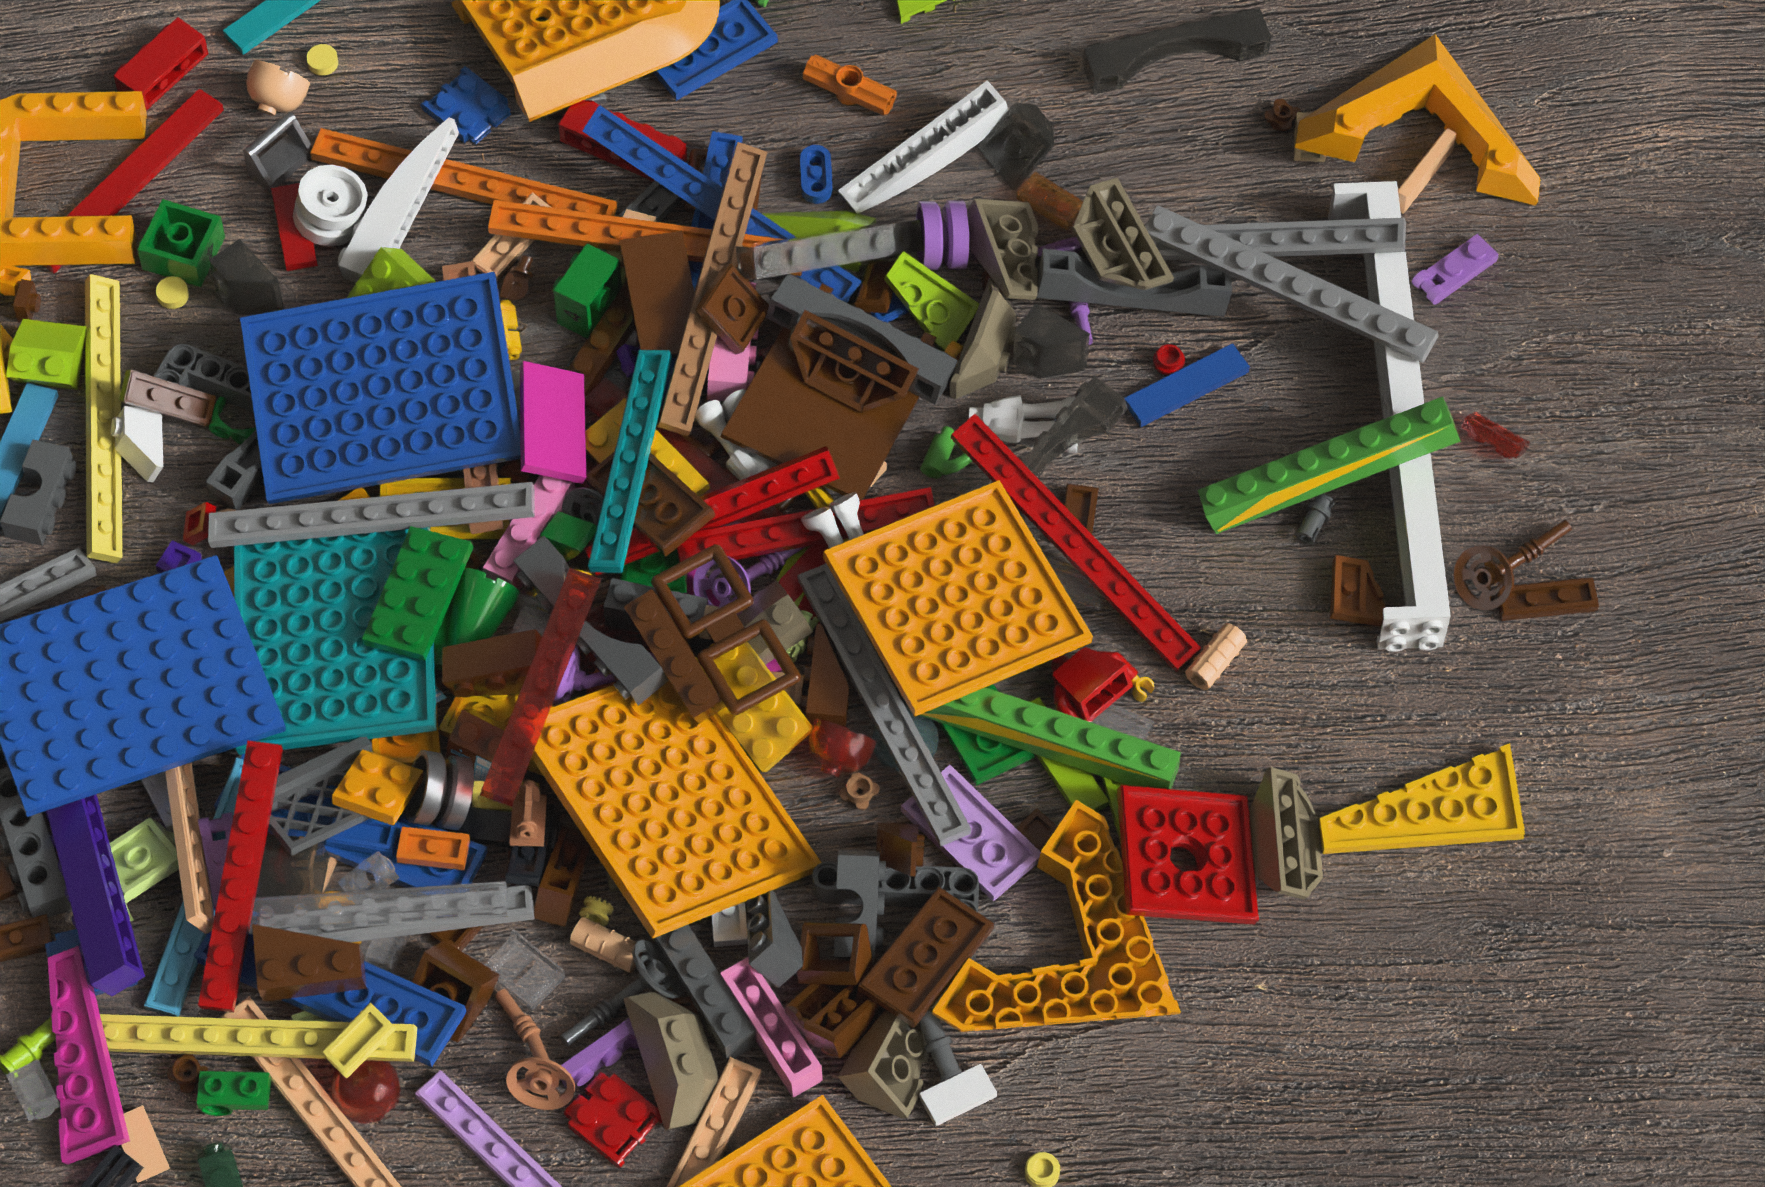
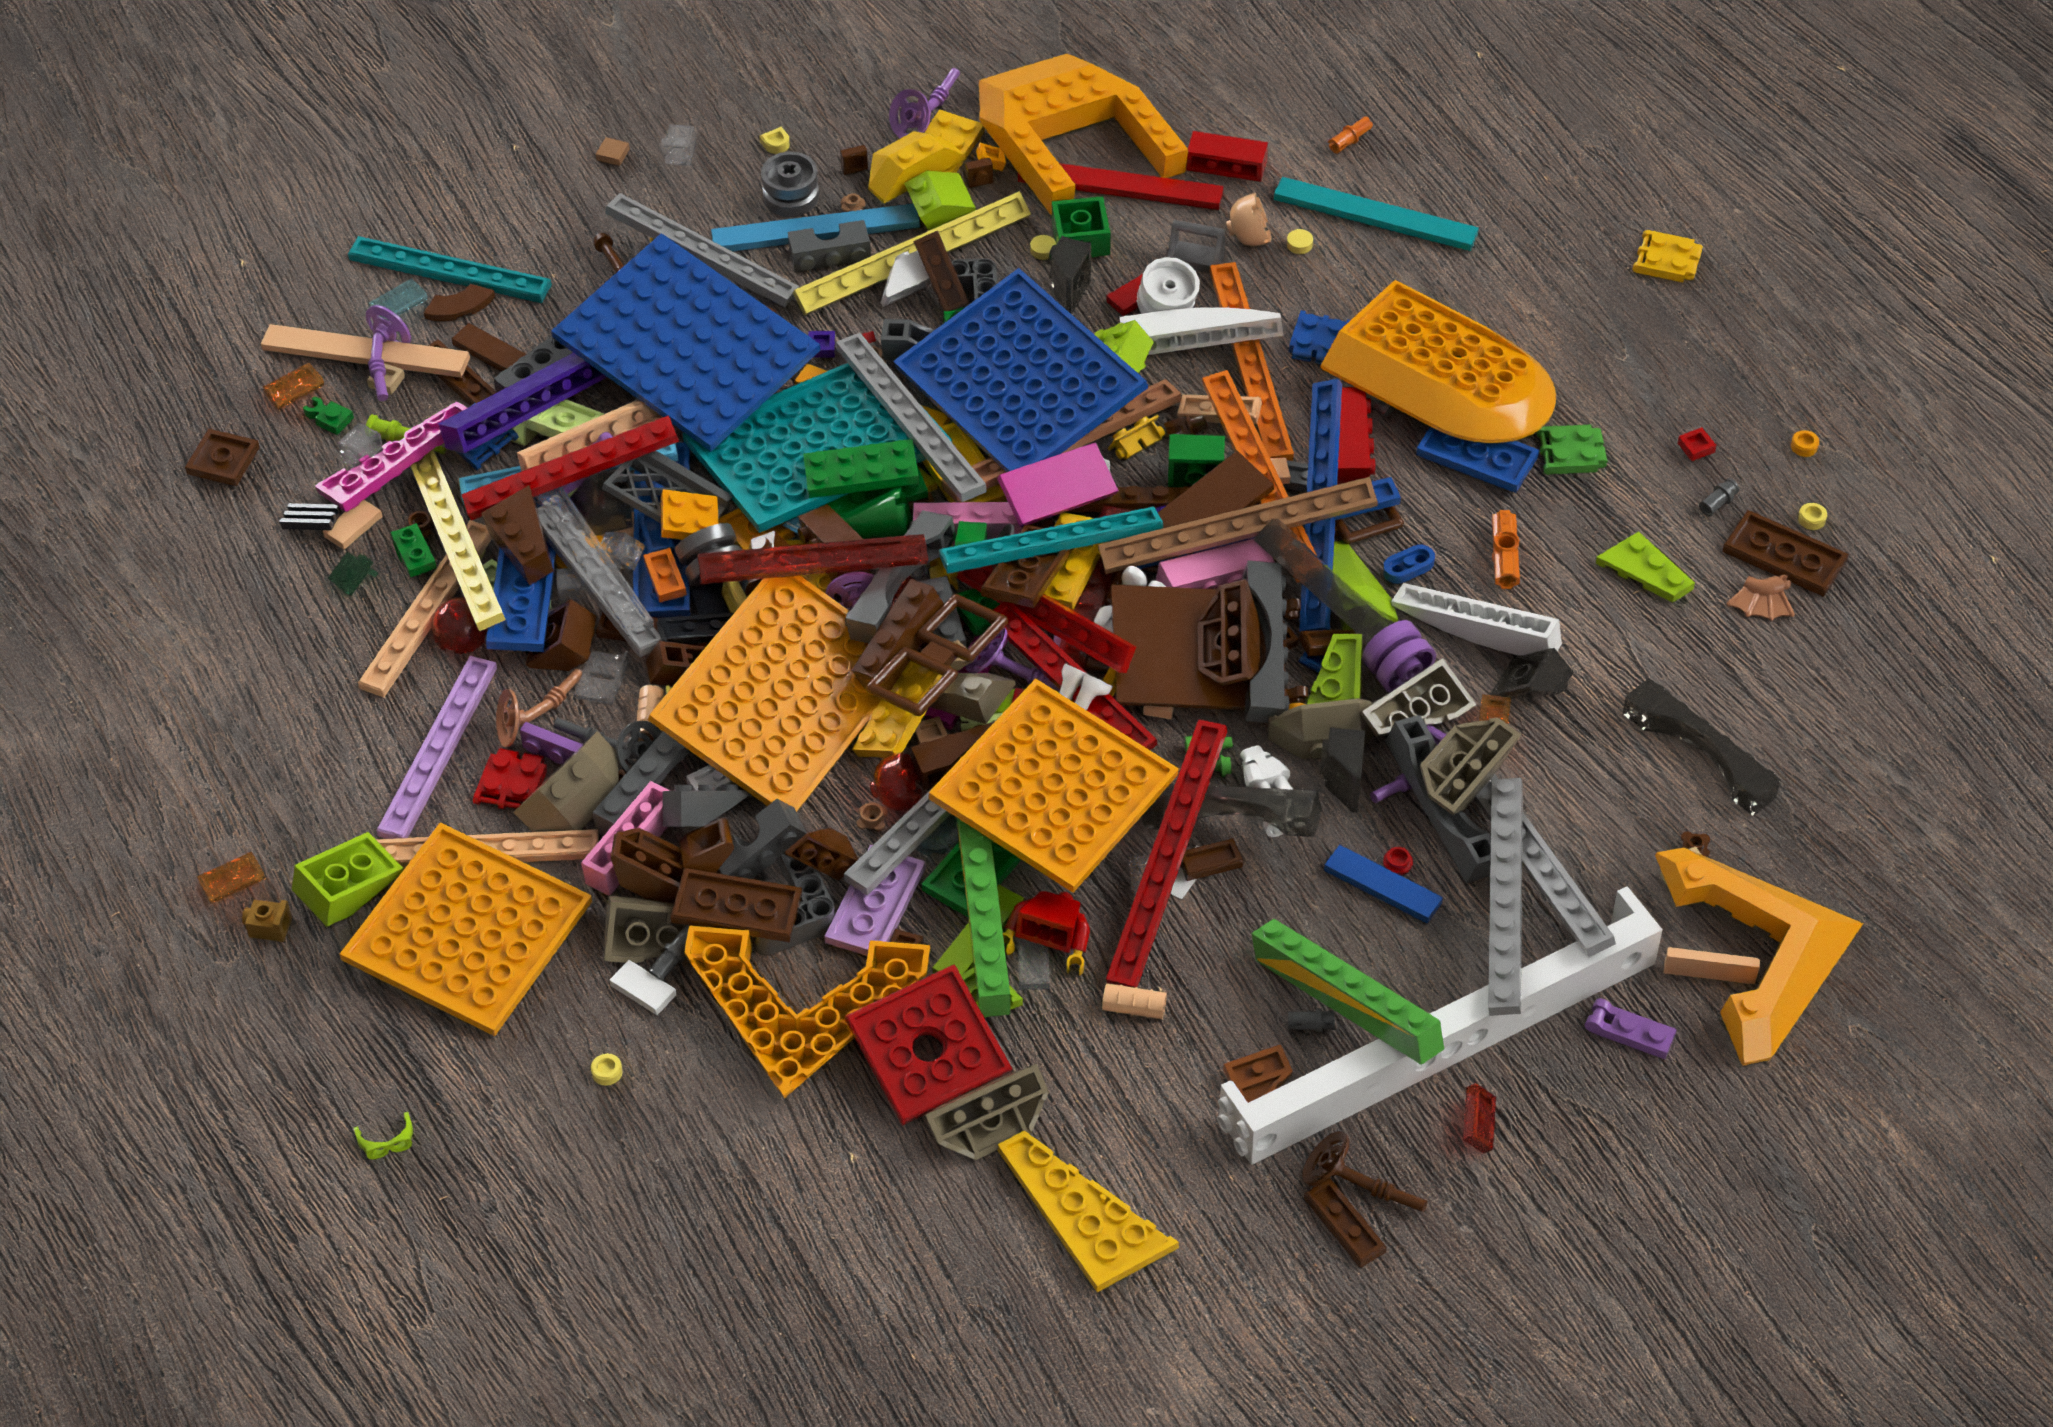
camera: 65 degrees right, 10 degrees down
(358, 1040) = (474, 588): light yellow tile -> none
(528, 816) = (712, 614): nougat hinge -> none
(733, 308) = (1225, 544): reddish brown tile -> none

